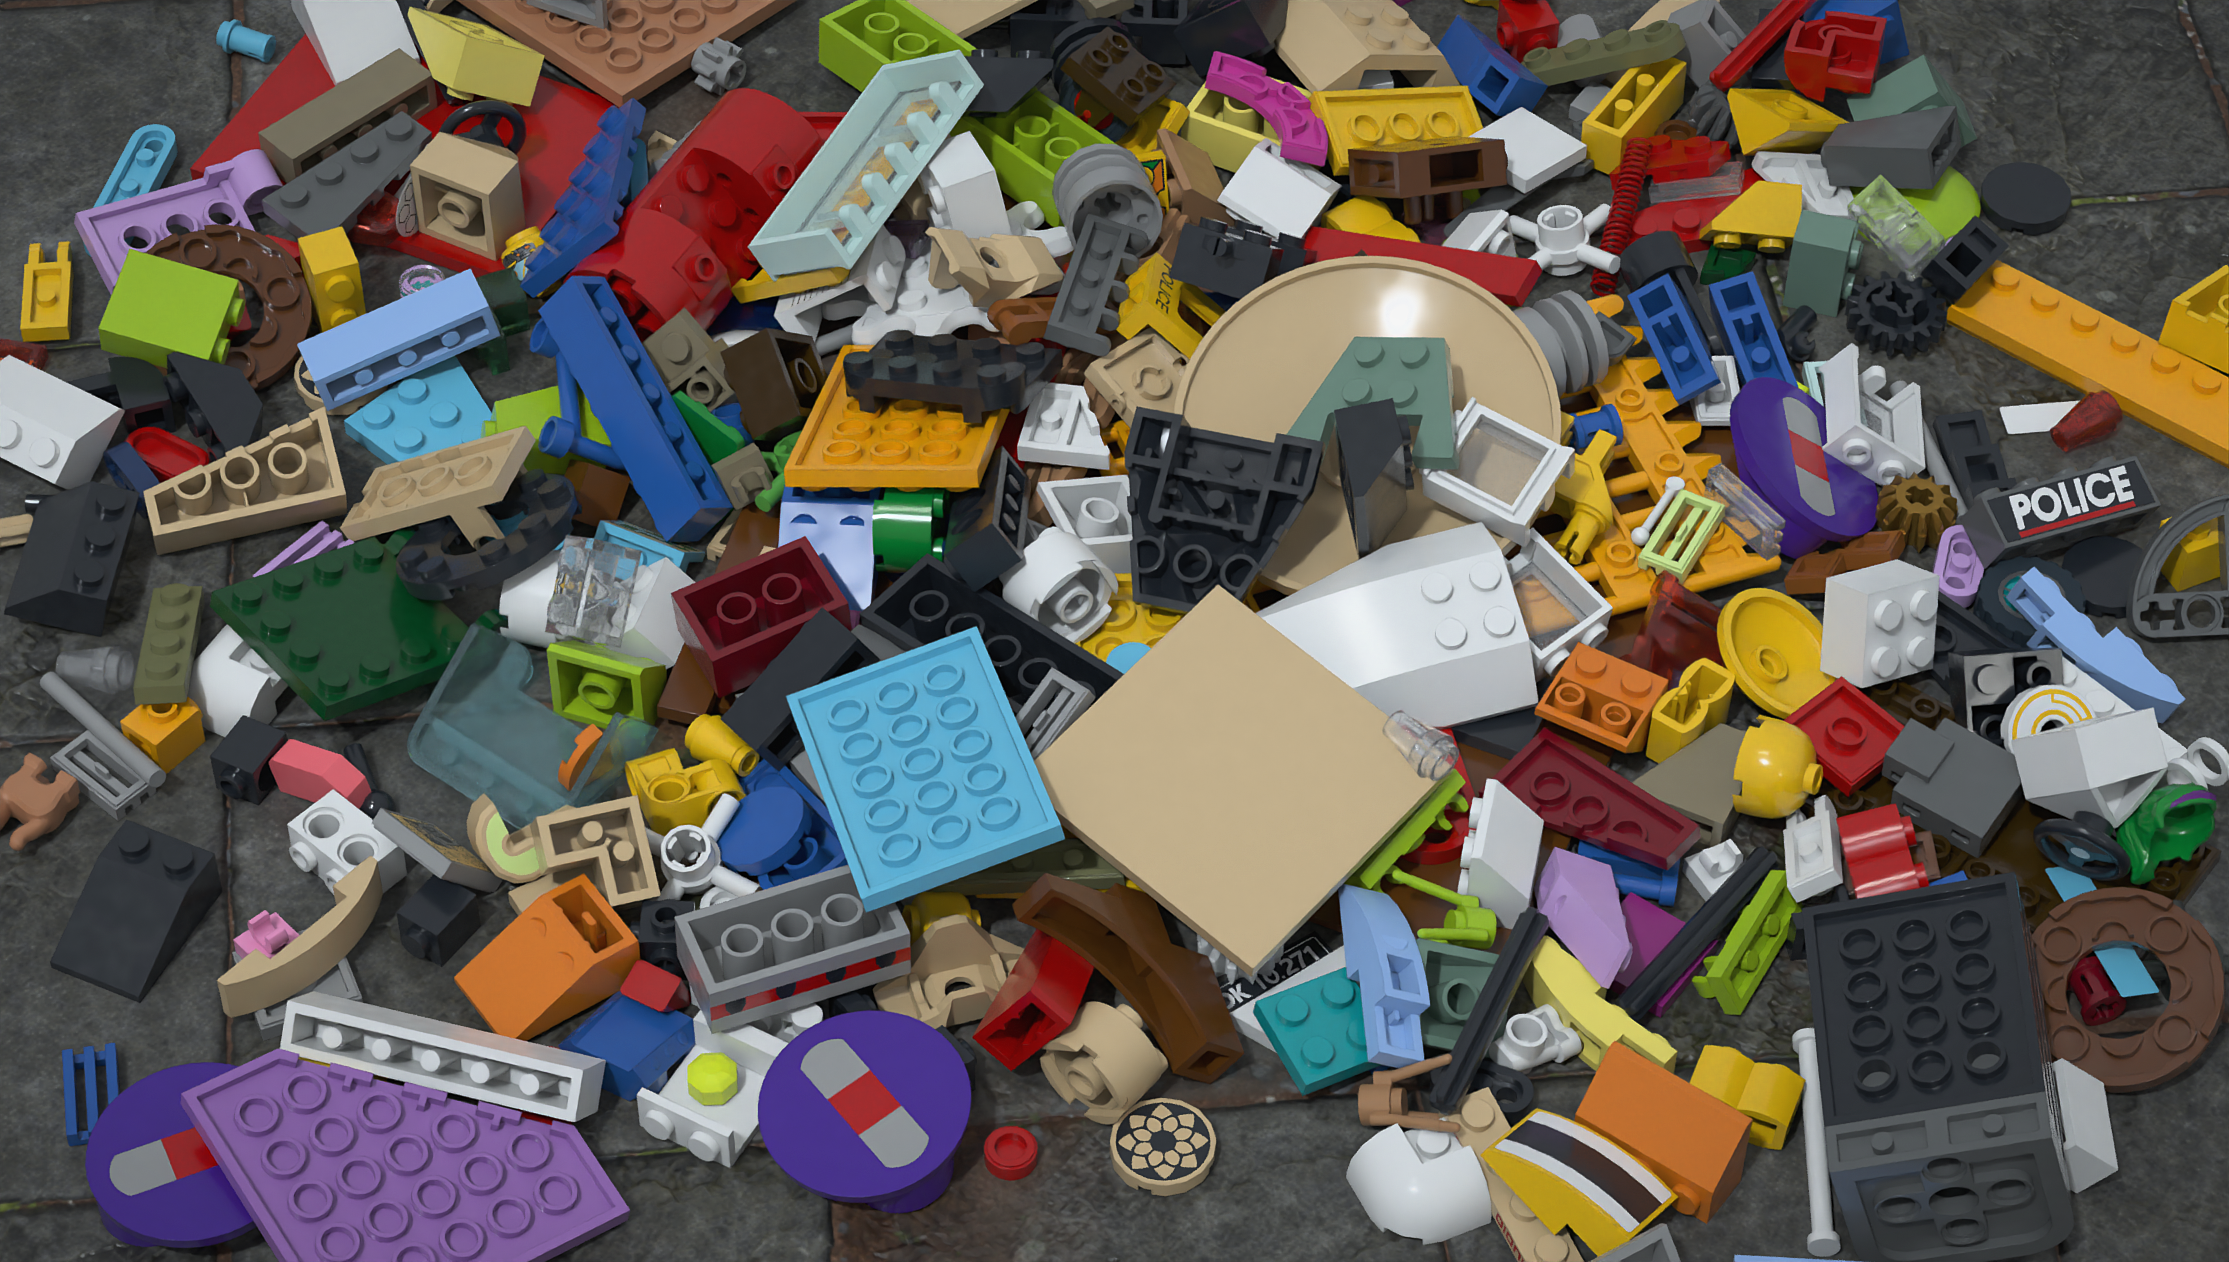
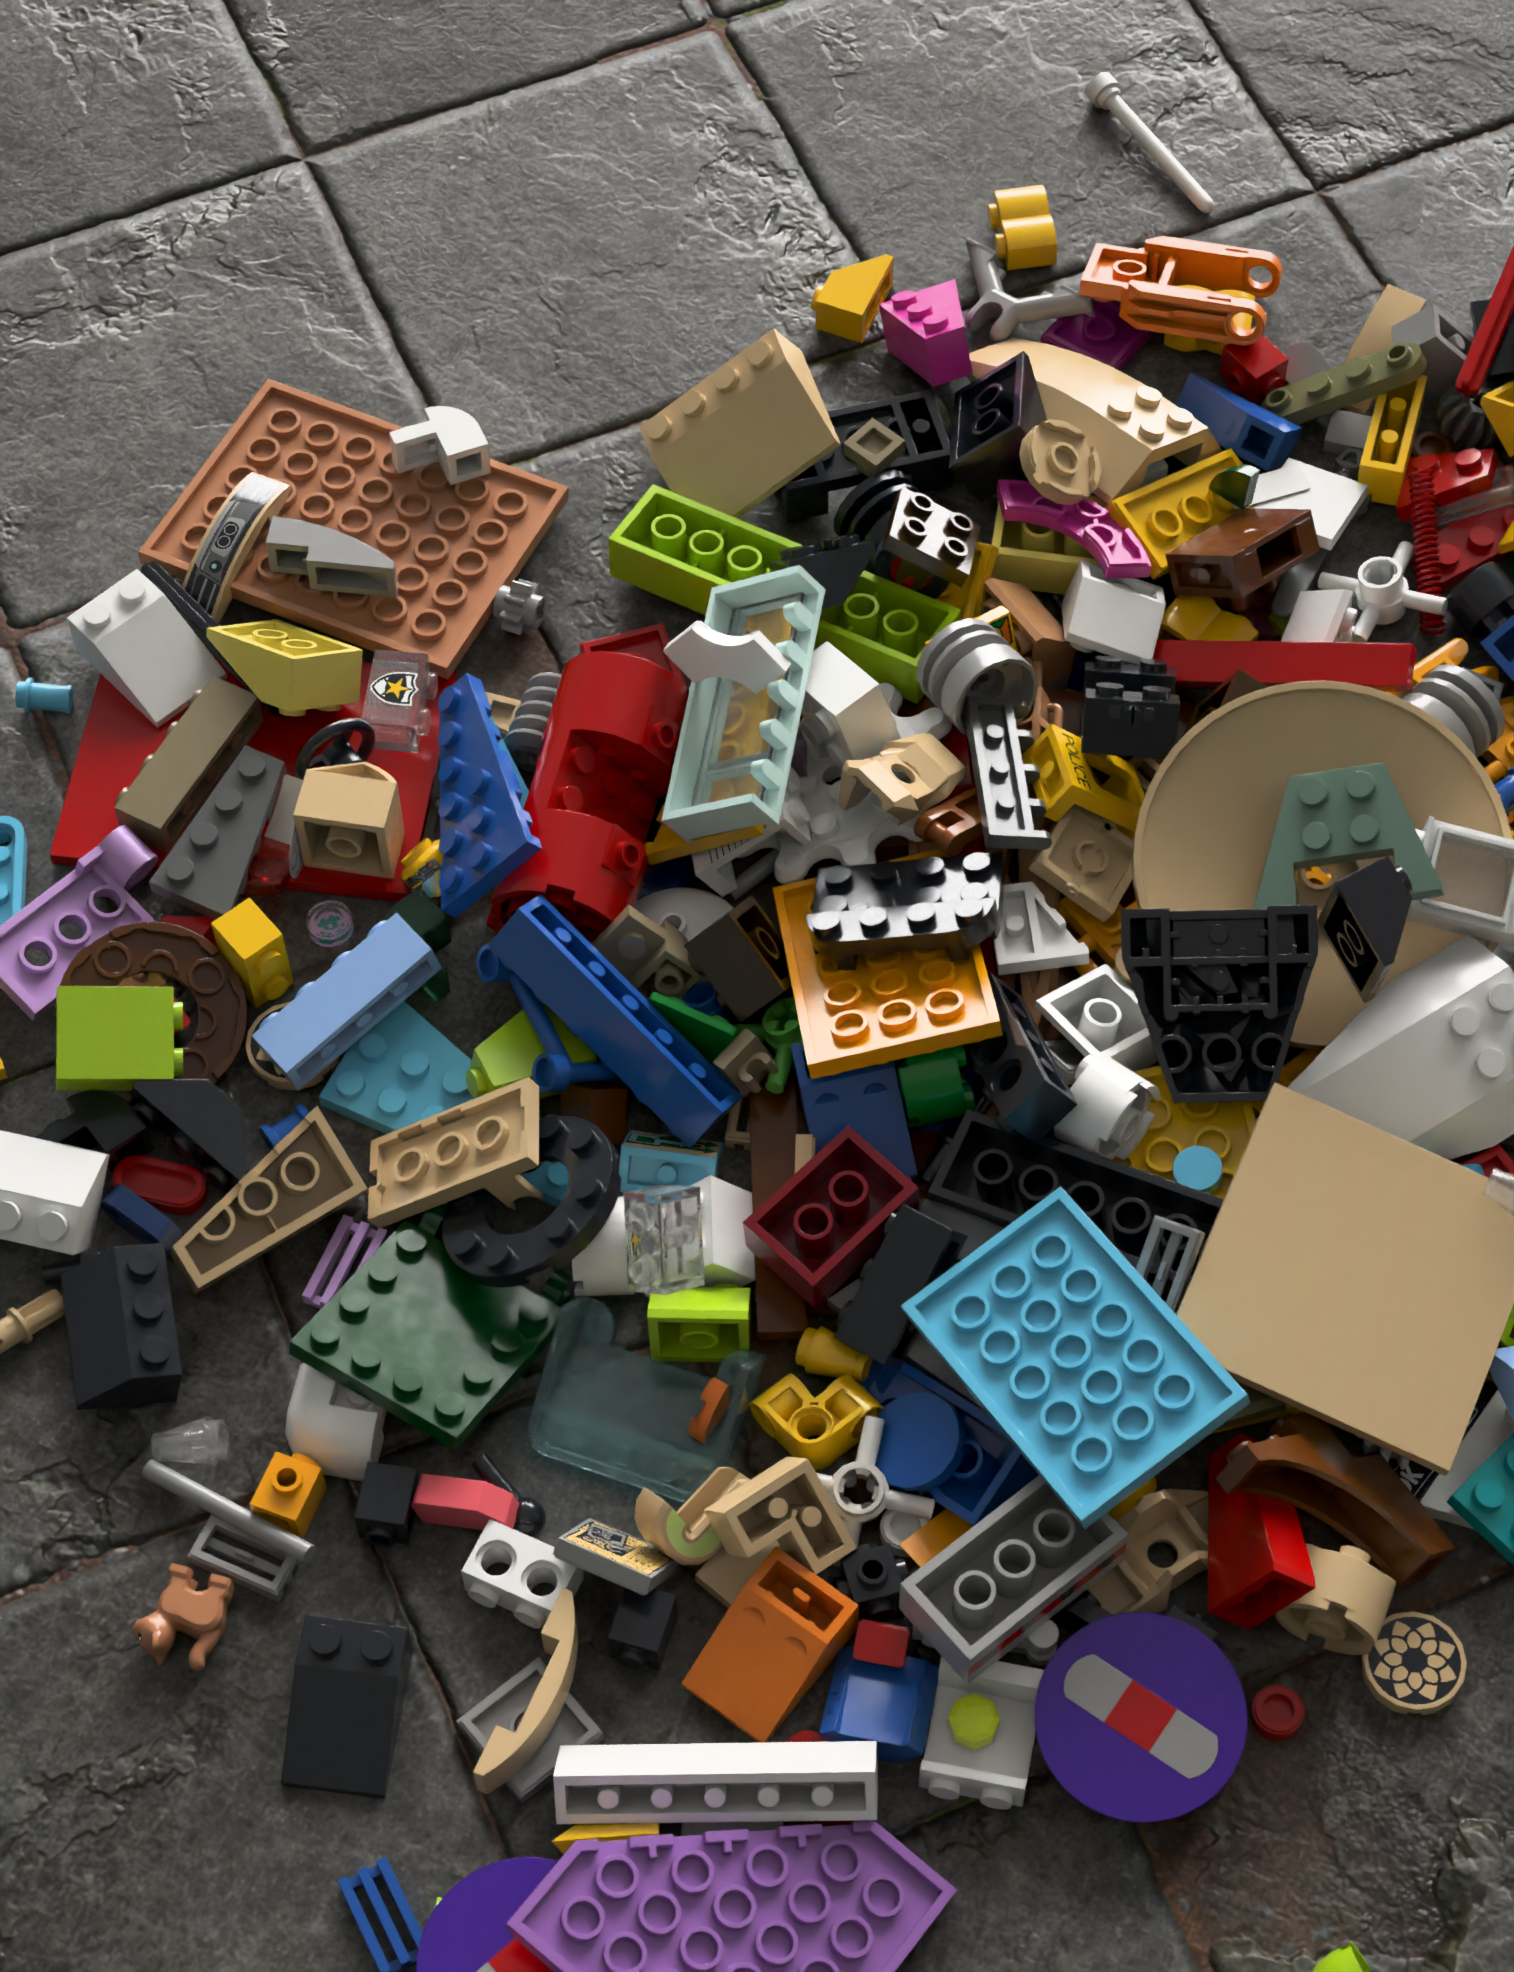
camera: 15 degrees left, 10 degrees up
(169, 644) = (260, 1402): olive plate -> none
(266, 934) = (495, 1703): bright pink tile -> none
(565, 112) = (399, 699): none -> clear brick
(847, 110) = (709, 654): none -> white tile
(1274, 44) = (1060, 462): none -> tan tile
(1450, 110) = (1236, 484): none -> dark green tile
(1485, 124) = (1279, 484): none -> white sticker

